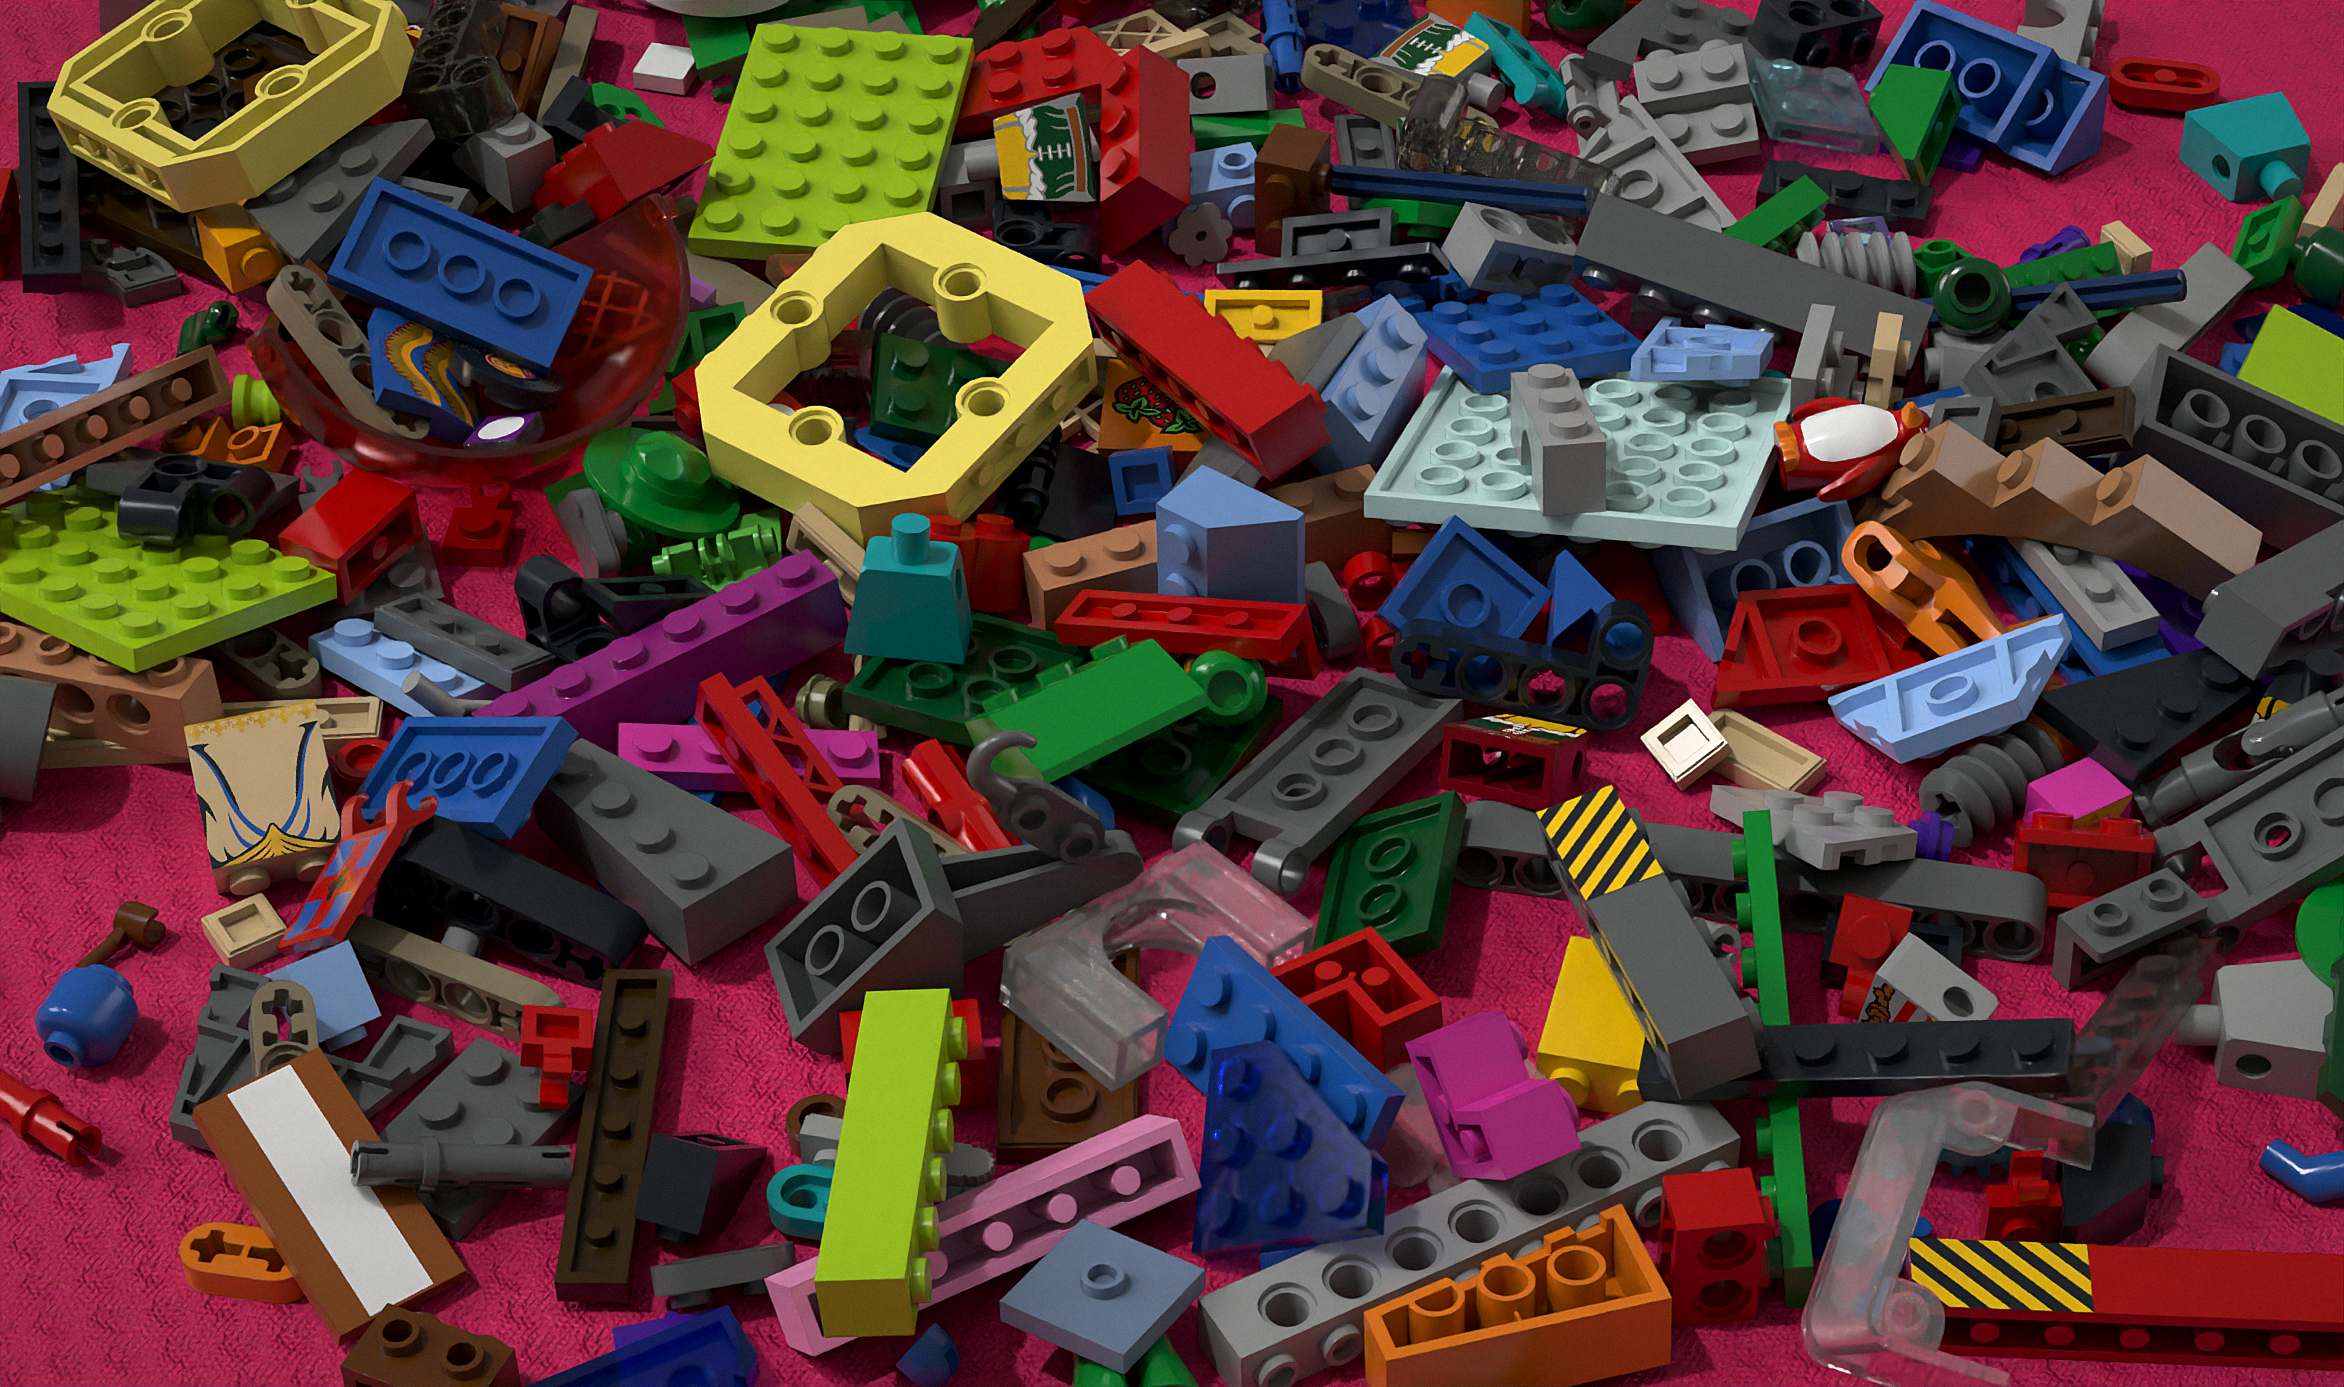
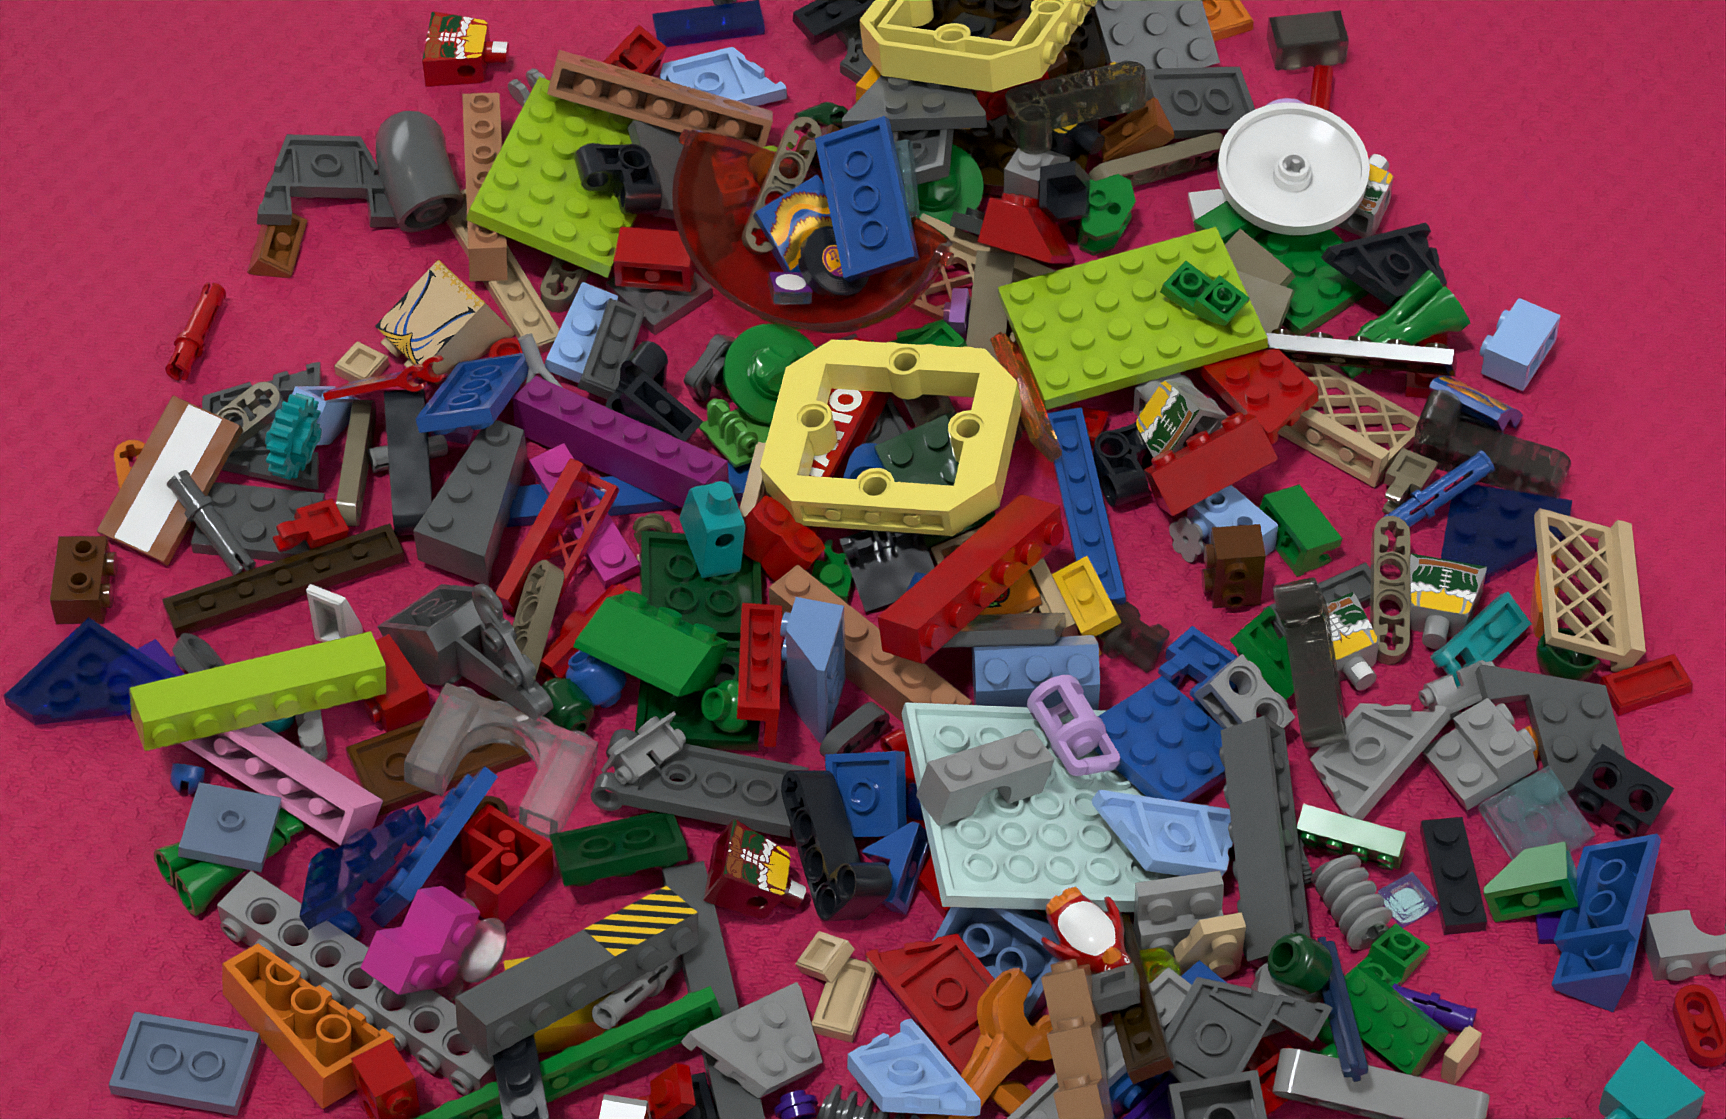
camera: 65 degrees right, 10 degrees up
(86, 1016) = (258, 329): blue head -> none
(131, 923) = (341, 318): reddish brown hand -> none
(392, 991) = (293, 436): none -> teal gear
(481, 533) = (722, 318): red plate -> none
(695, 1182) = (259, 626): black slope -> none
(755, 1073) = (331, 615): none -> white slope
(889, 49) = (1208, 299): none -> green slope
(1241, 83) = (1340, 490): light grey torso -> none
(1247, 794) = (631, 756): none -> light grey hinge
(1338, 251) = (1184, 611): black bracket -> none
(1459, 189) = (1277, 659): dark blue axle -> none
(1485, 388) = (1077, 736): none -> lavender piece

